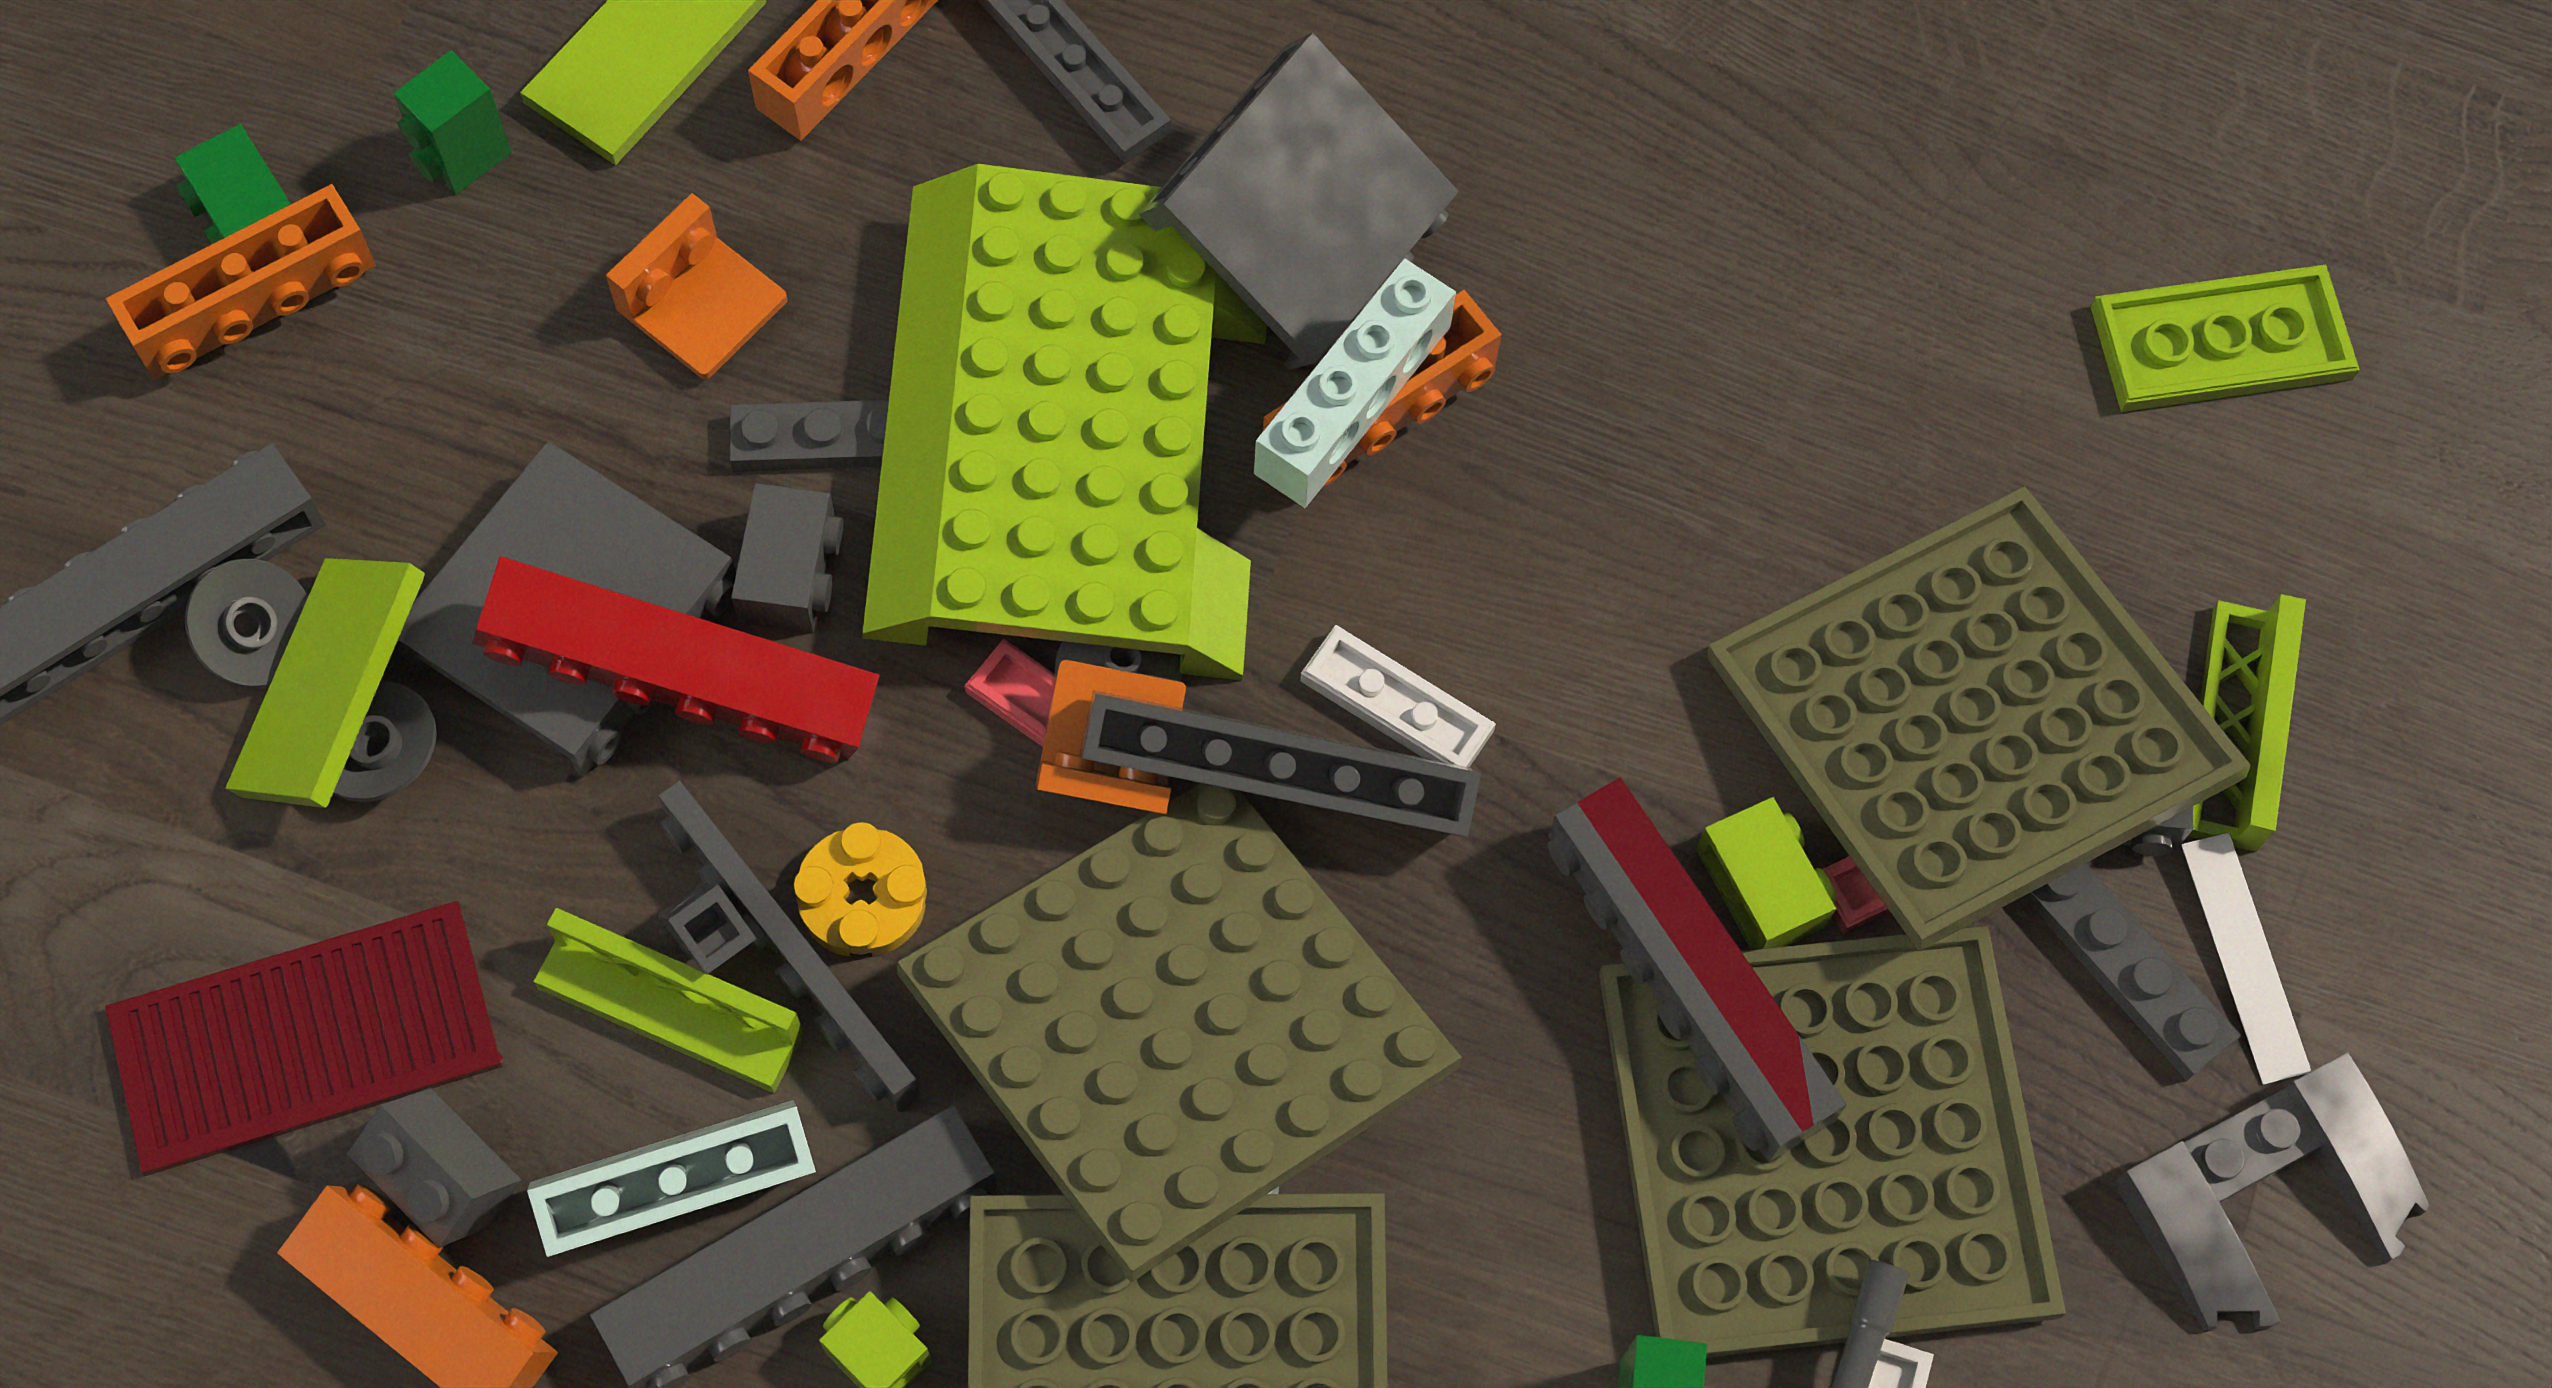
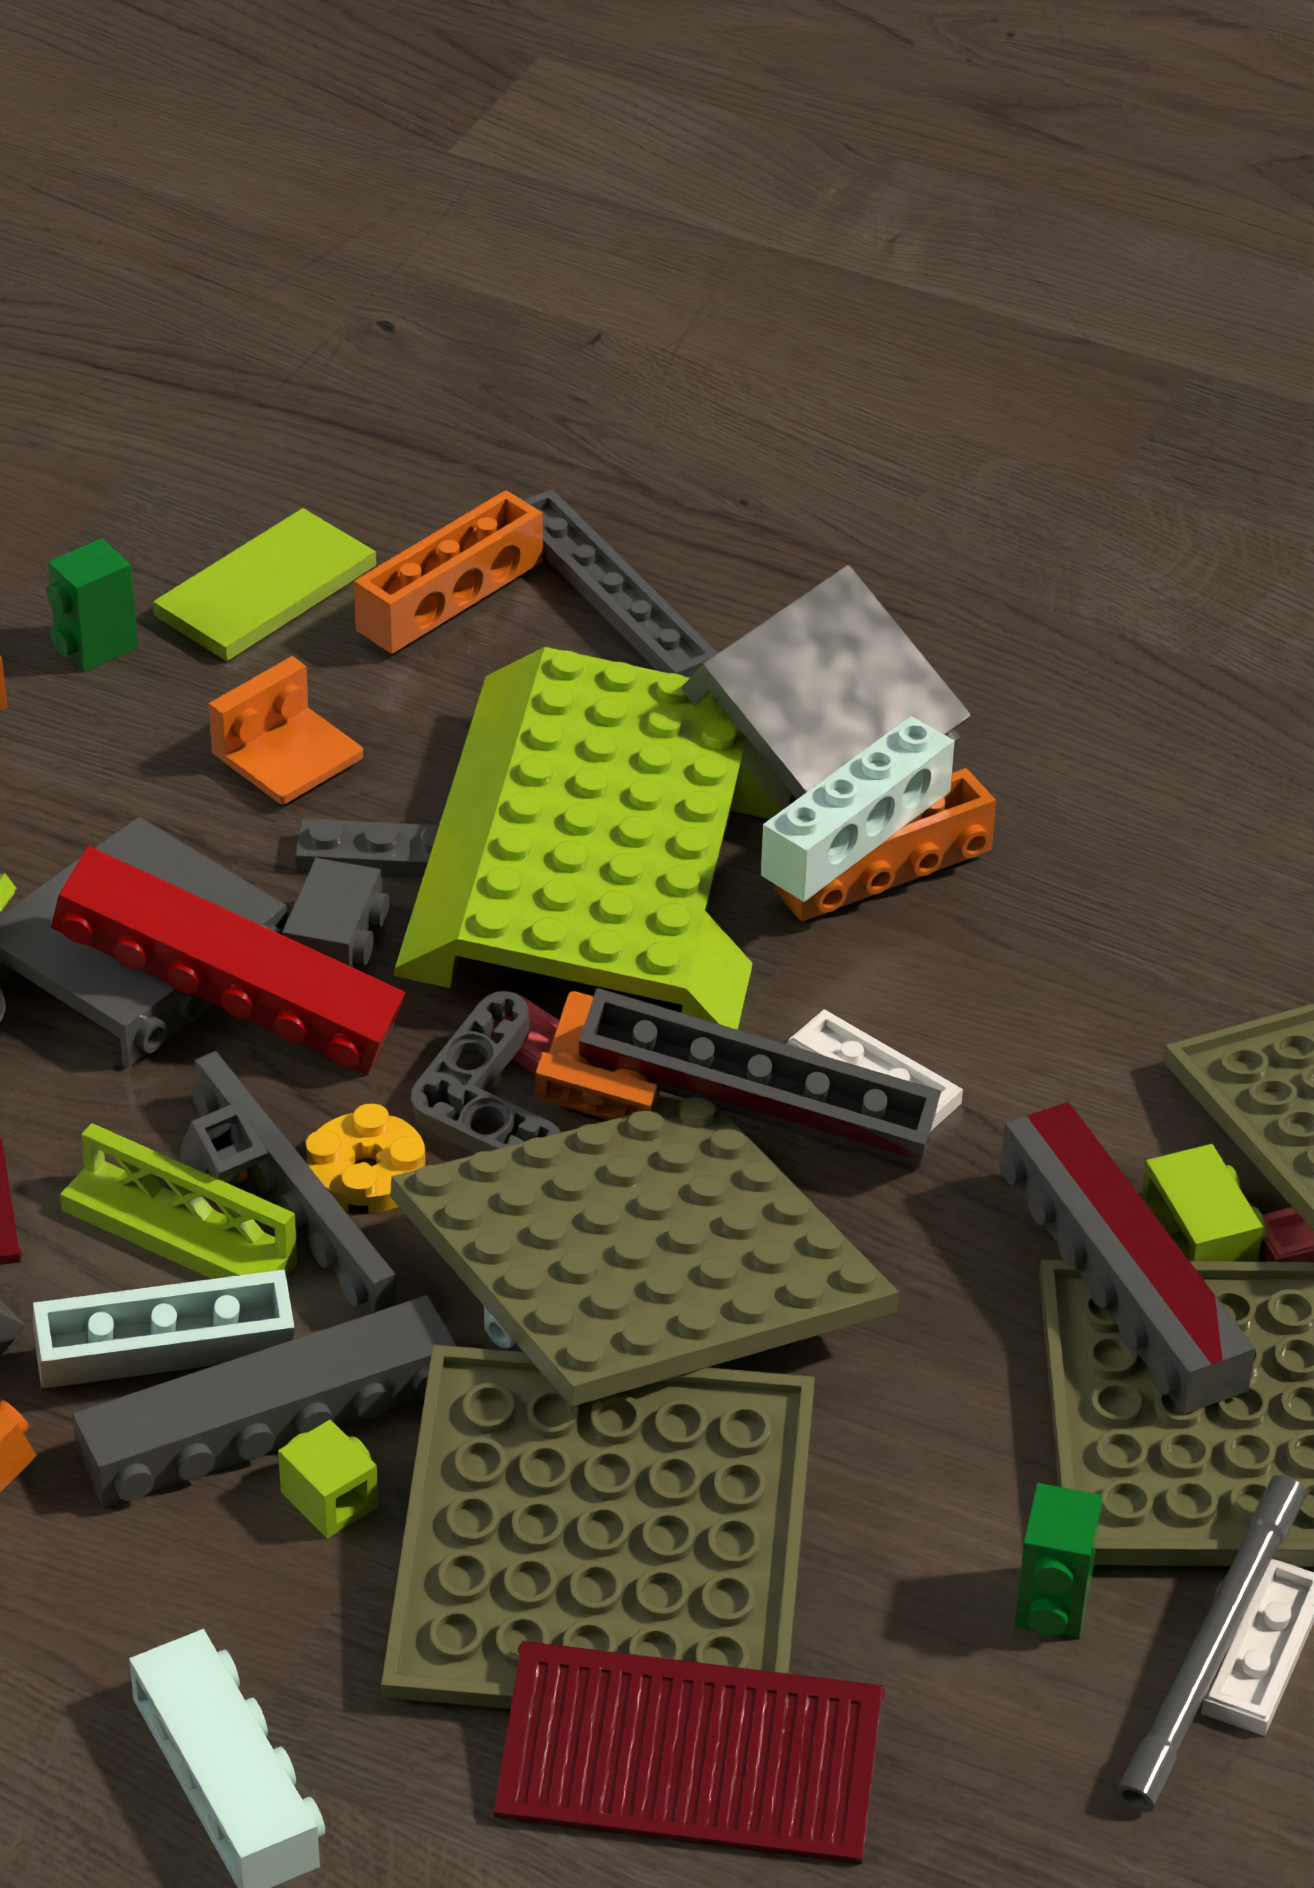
camera: 10 degrees right, 25 degrees down
(960, 778) = (469, 1088): none -> dark grey beam

